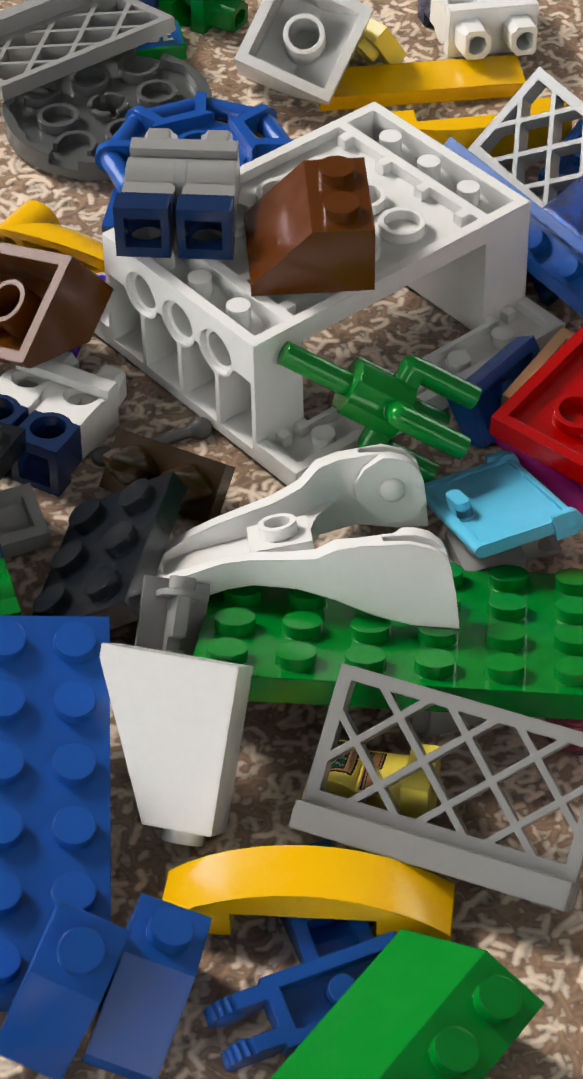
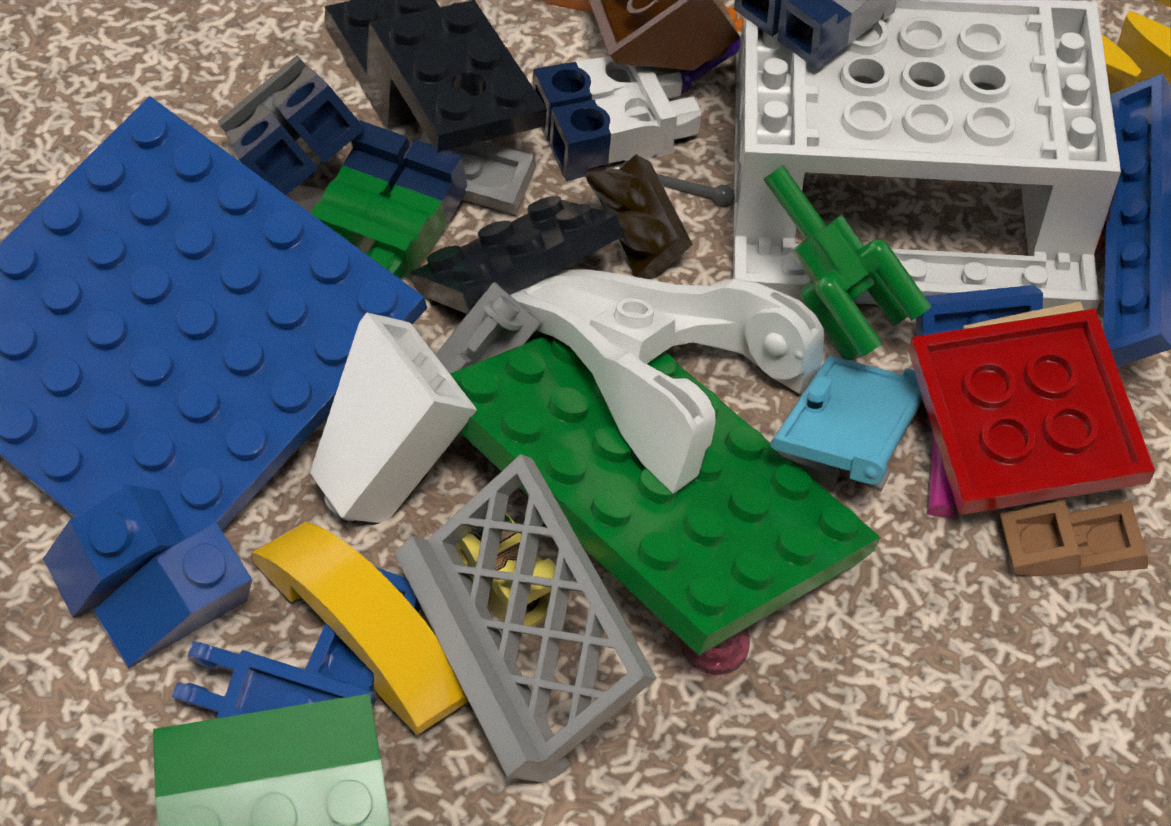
camera: 40 degrees right, 10 degrees up
(313, 231) = (892, 86): reddish brown slope -> none

